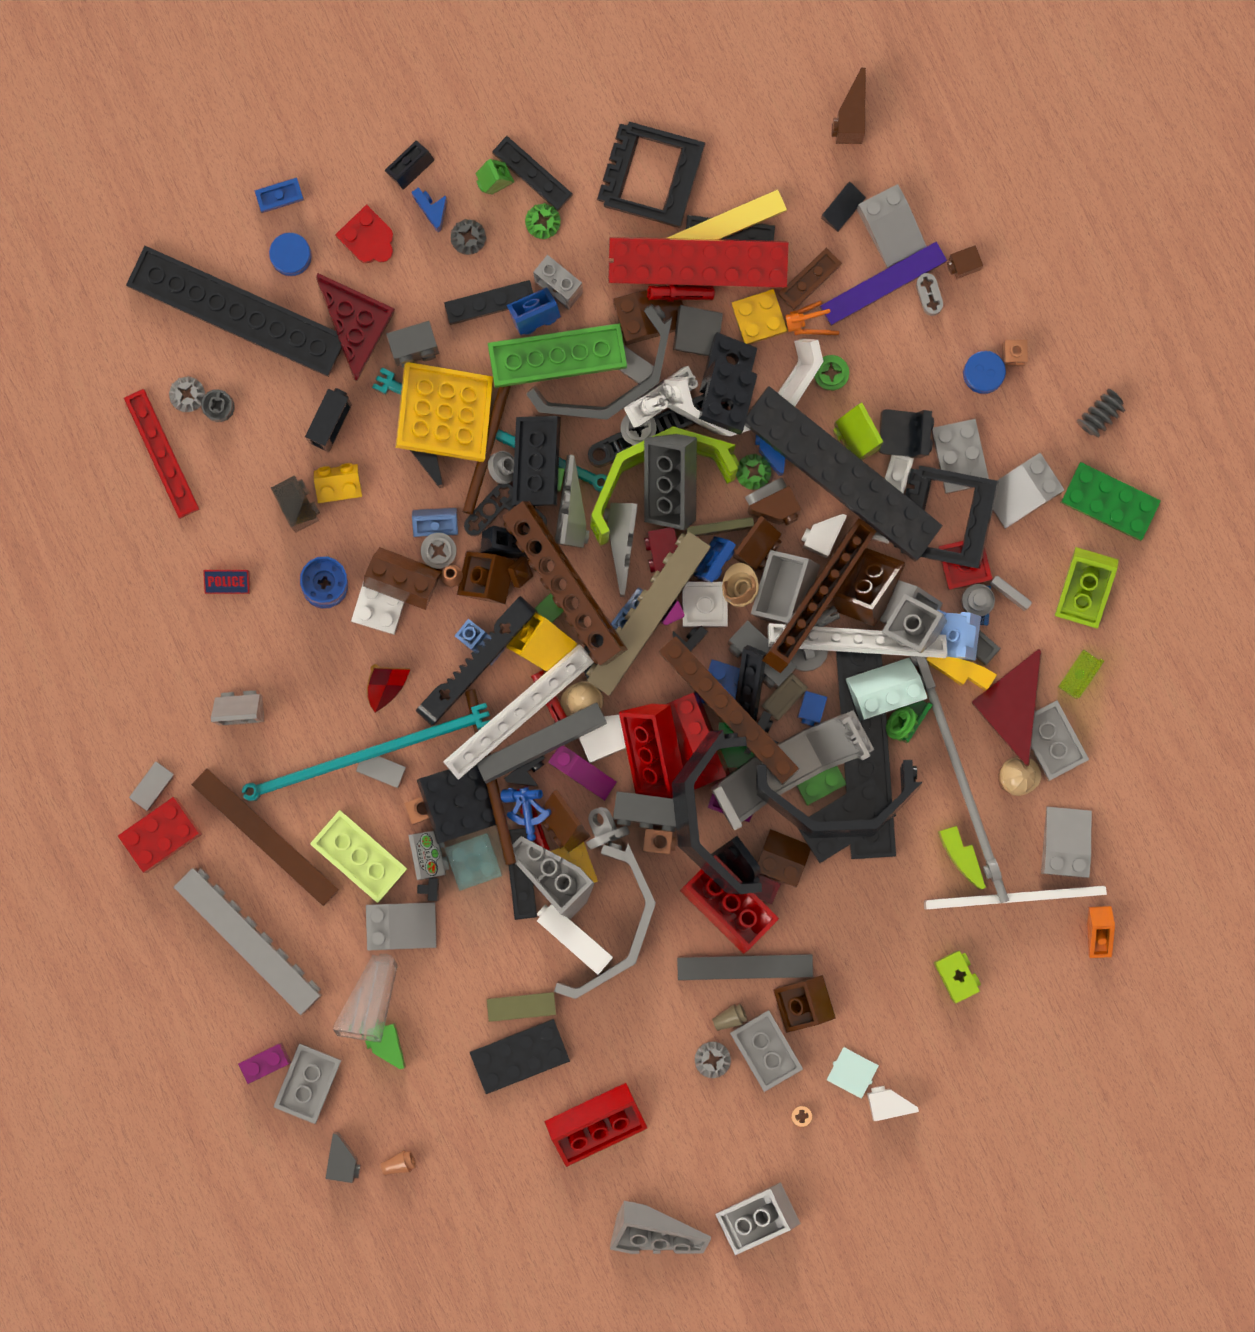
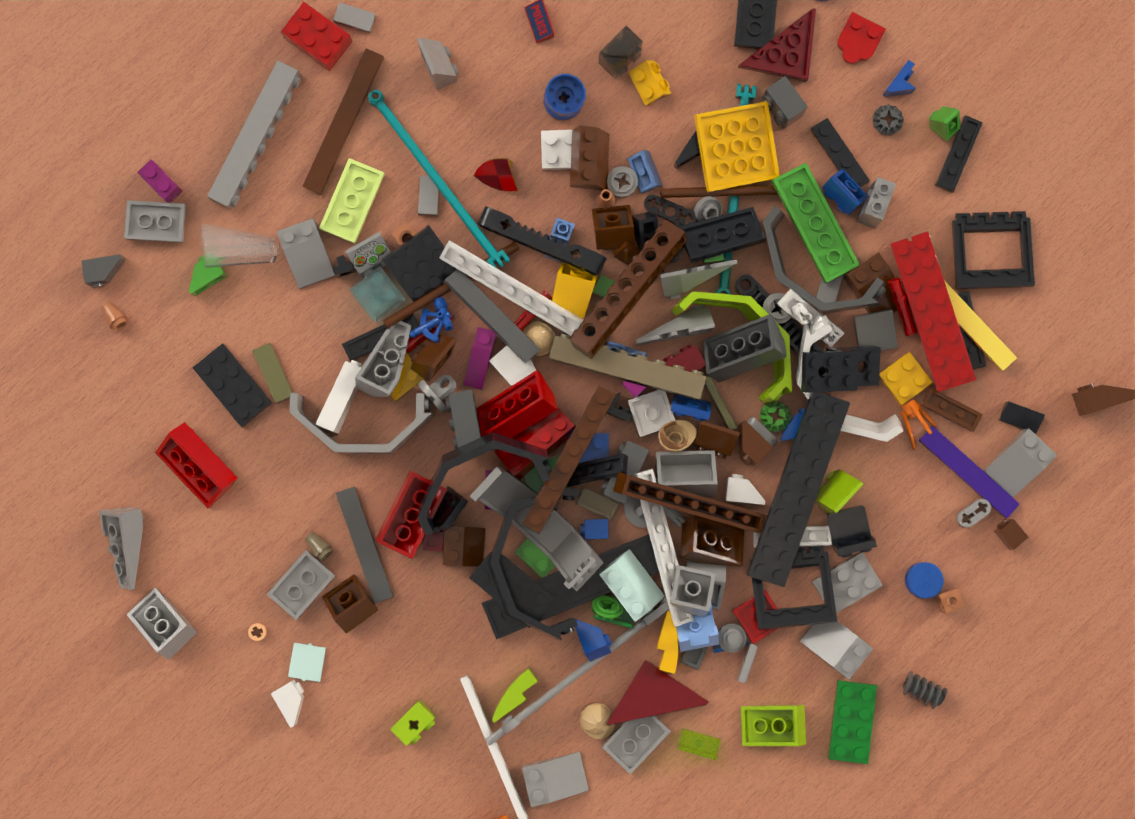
camera: 70 degrees right, 0 degrees up
(329, 419) = (698, 56): black window -> none
(409, 164) = (930, 53): black slope -> none
(521, 774) = (461, 310): black slope -> none
(538, 230) = (923, 184): bright green gear -> none
(650, 834) = (437, 433): nougat brick -> none
(717, 1050) = (289, 544): light grey gear -> none
(838, 365) = (888, 456): bright green gear -> none
(933, 750) = (593, 640): none -> blue slope

